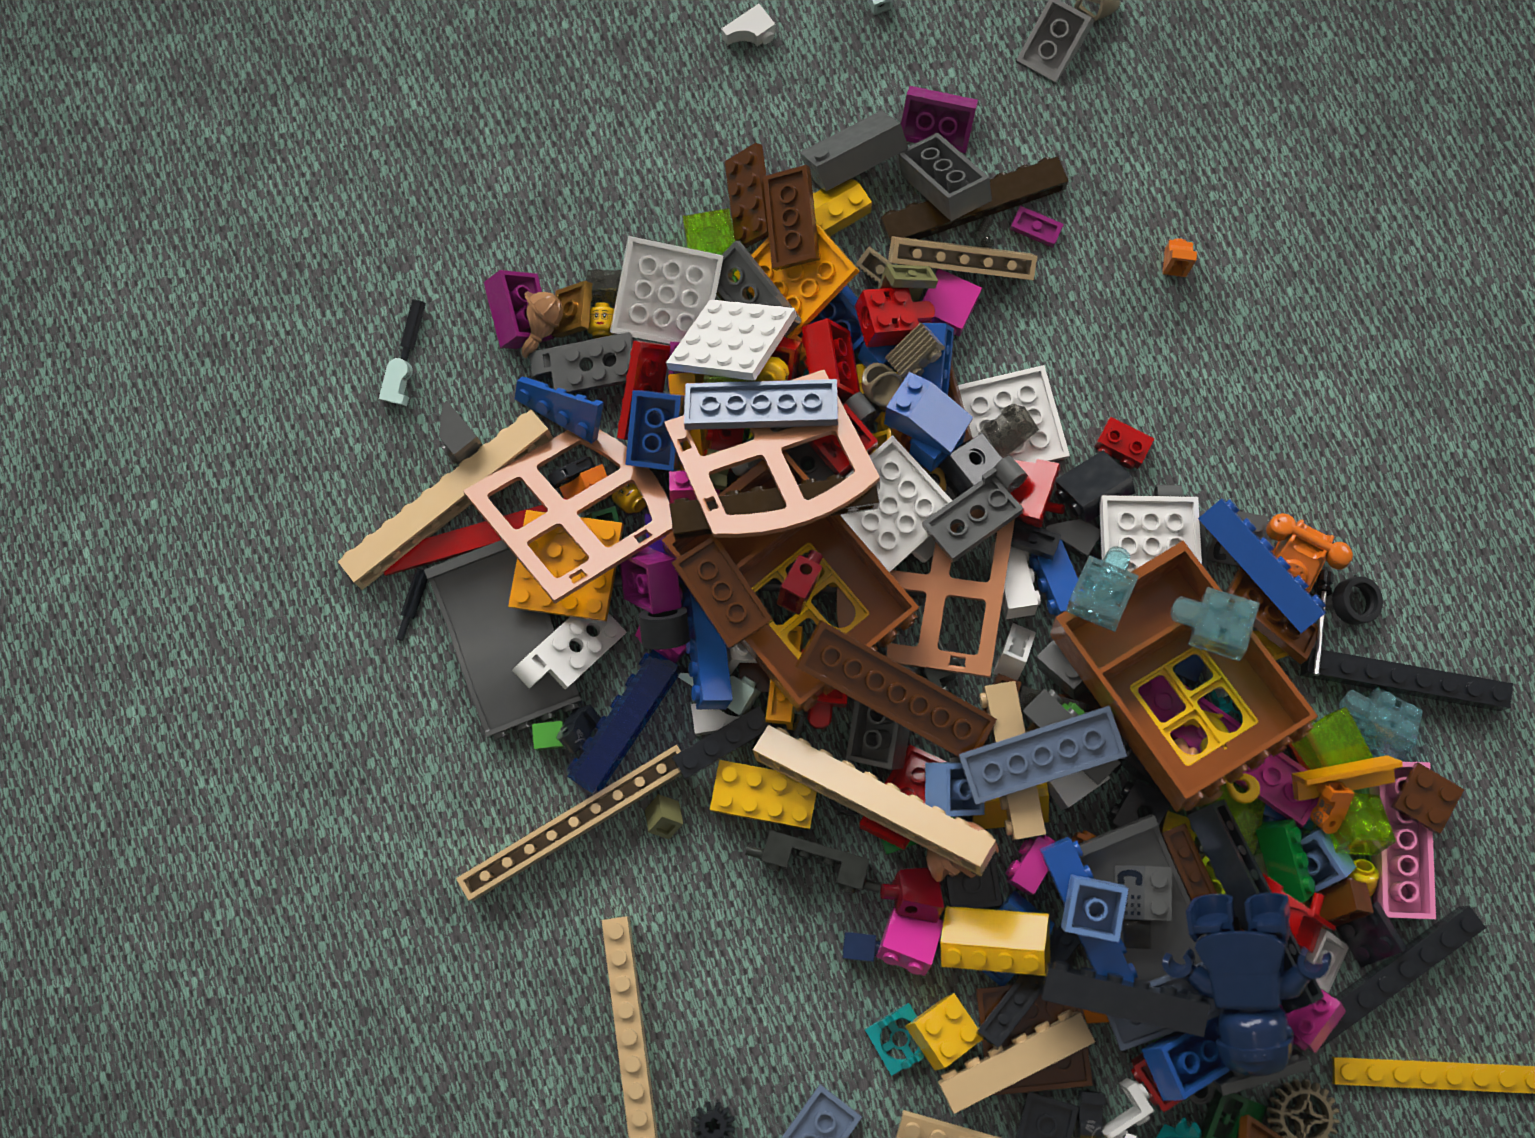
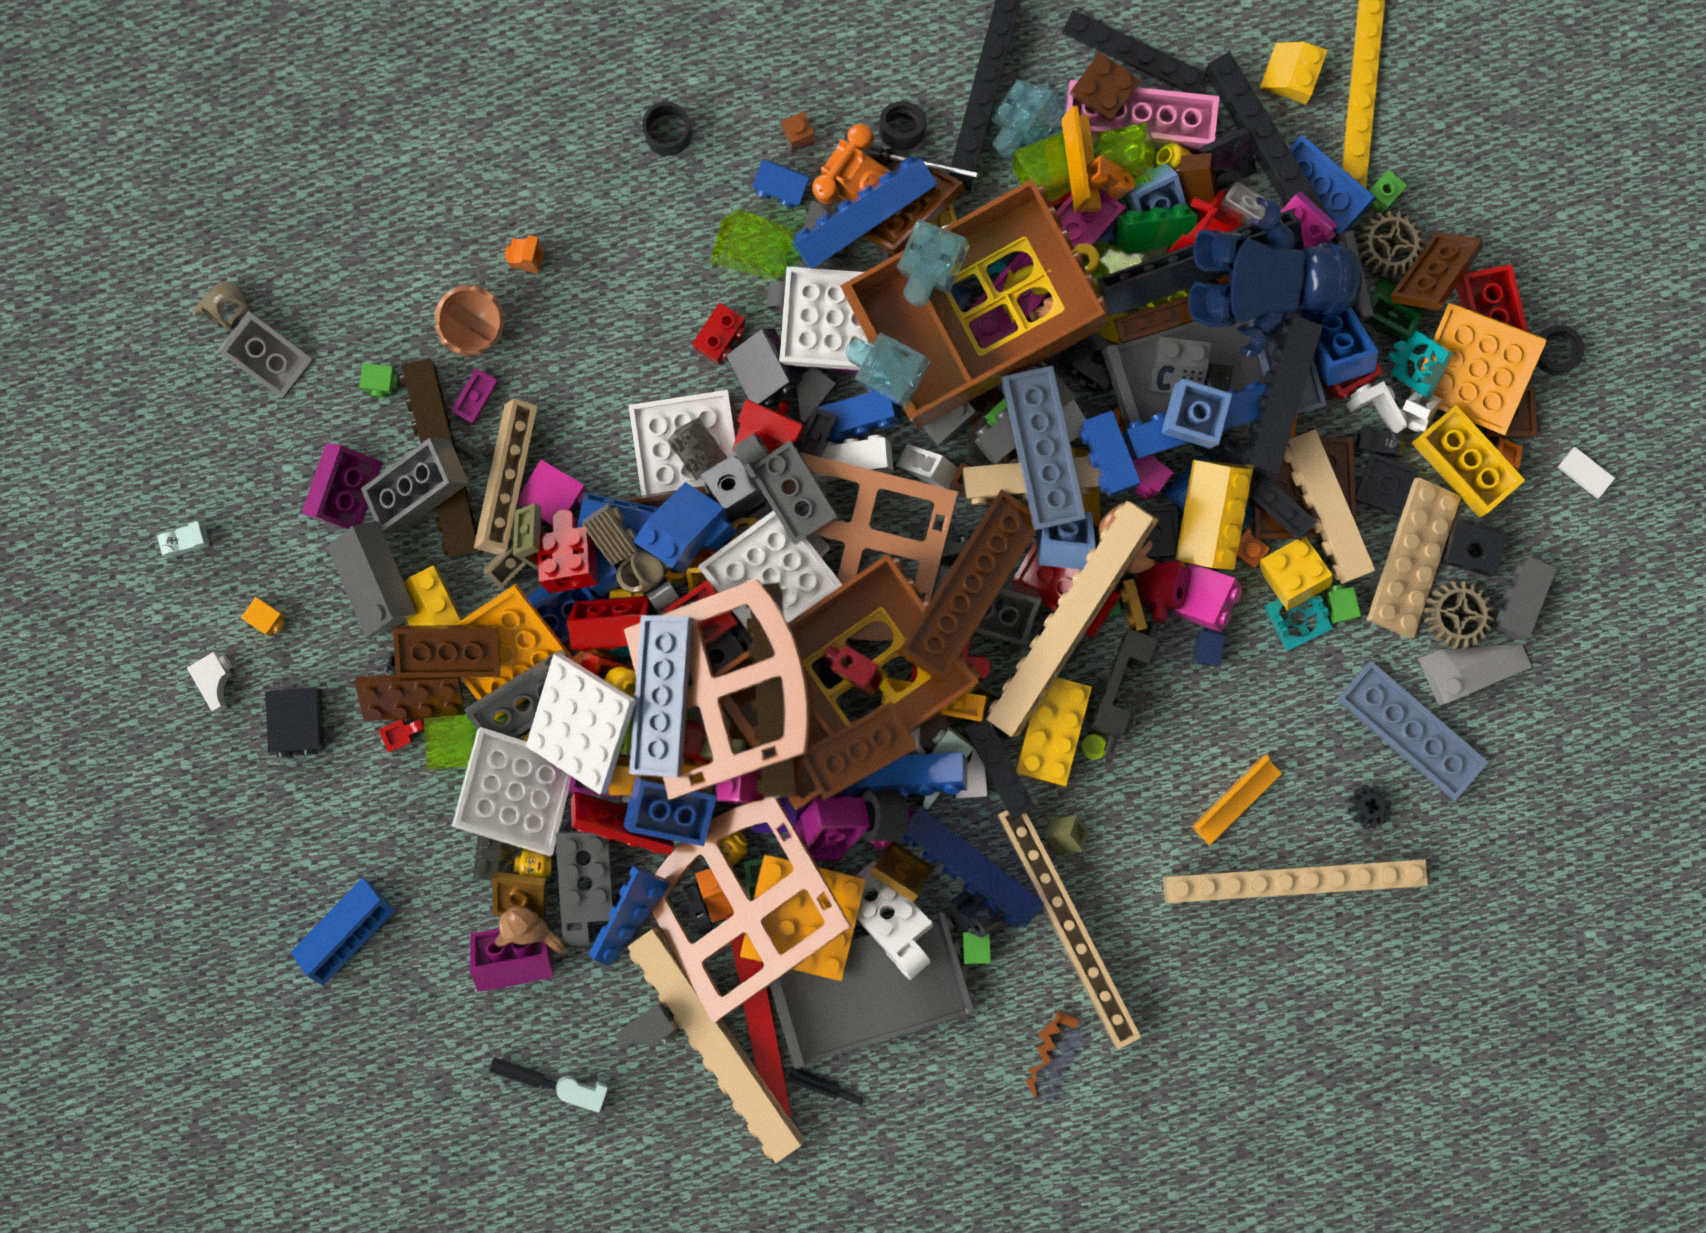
camera: 85 degrees left, 5 degrees up
(465, 839) = (1052, 1065): none -> piece
(531, 162) = (342, 931): none -> blue brick
(616, 657) = (902, 871): none -> pearl gold plate
(710, 986) = (1236, 799): none -> light orange panel
(714, 192) = (399, 734): none -> red plate
(718, 101) = (294, 721): none -> black brick
(752, 836) = (1093, 747): none -> lime tile
(811, 65) = (264, 617): none -> light orange brick
(882, 868) = (1130, 597): none -> pearl gold plate
(917, 1083) = (1342, 604): none -> bright green brick
(965, 984) = (1251, 549): none -> orange bracket
(1042, 140) = (379, 380): none -> bright green brick
(1043, 823) = (1109, 454): none -> blue brick
(1114, 203) = (469, 309): none -> nougat piece
(1215, 466) = (752, 245): none -> clear neon green slope
(1282, 487) = (781, 183): none -> blue brick
(1333, 360) = (658, 110): none -> black piece
(1336, 500) = (798, 131): none -> dark orange brick
(1354, 1050) = (1336, 189): none -> blue wing
(1358, 1105) = (1386, 191): none -> bright green brick
(1469, 830) = (1133, 52): none -> black plate
(1476, 1000) = (1293, 70): none -> yellow slope

